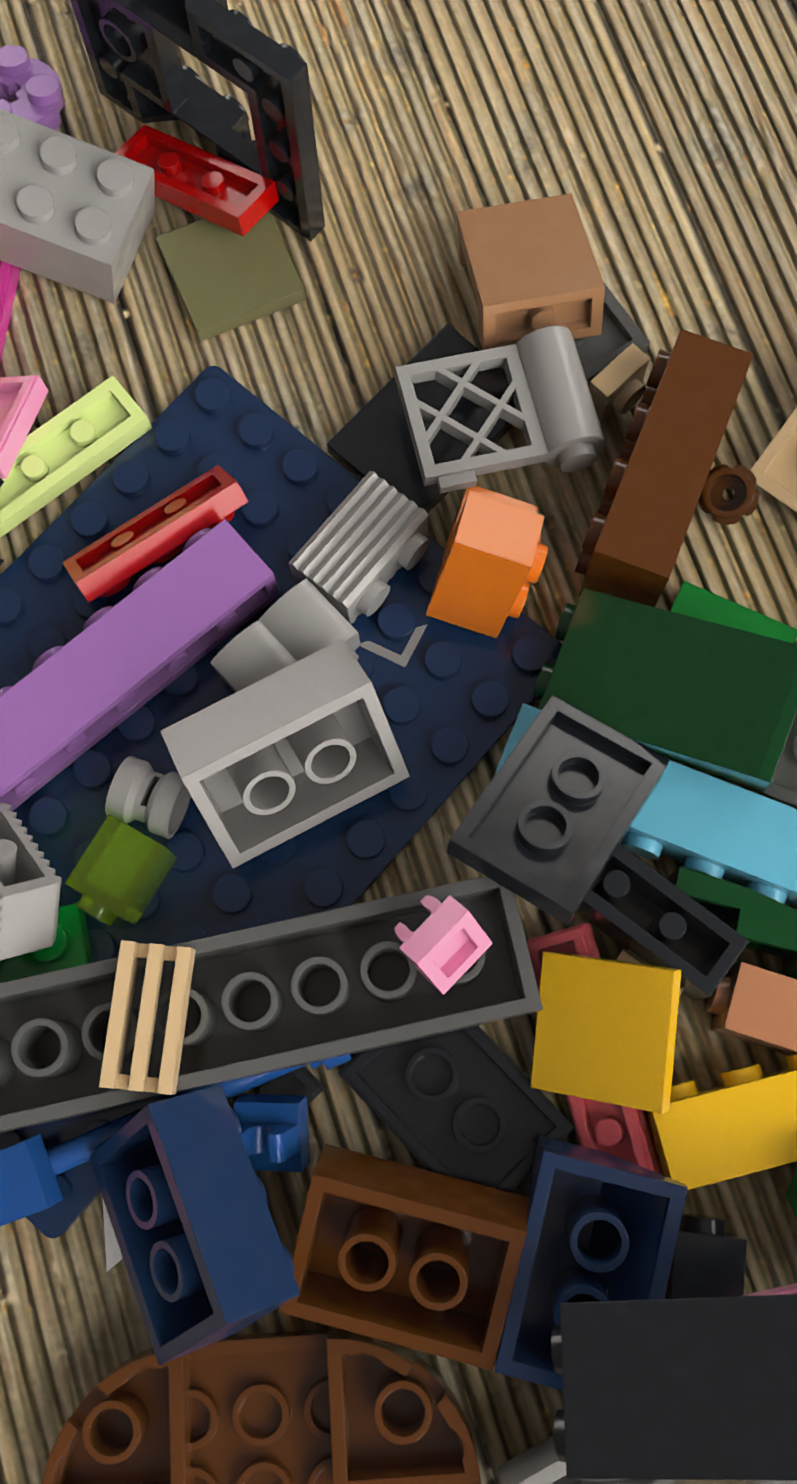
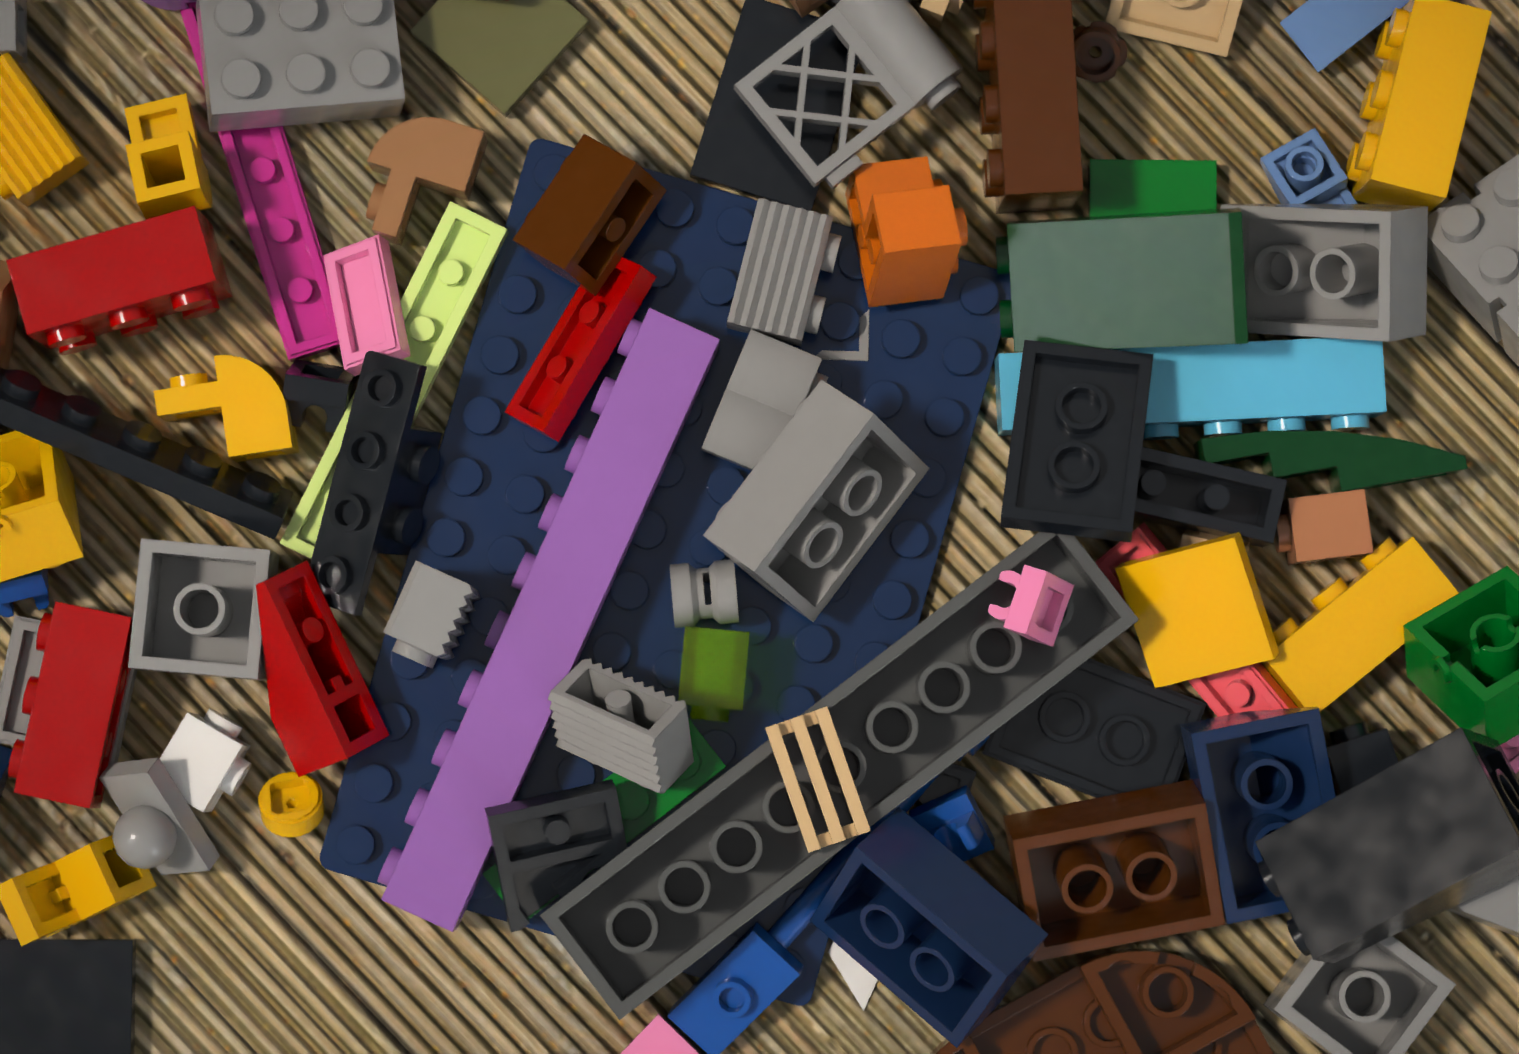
camera: 35 degrees left, 10 degrees up
(104, 331) = (417, 155): none -> medium nougat brick
(217, 424) = (589, 214): none -> reddish brown brick

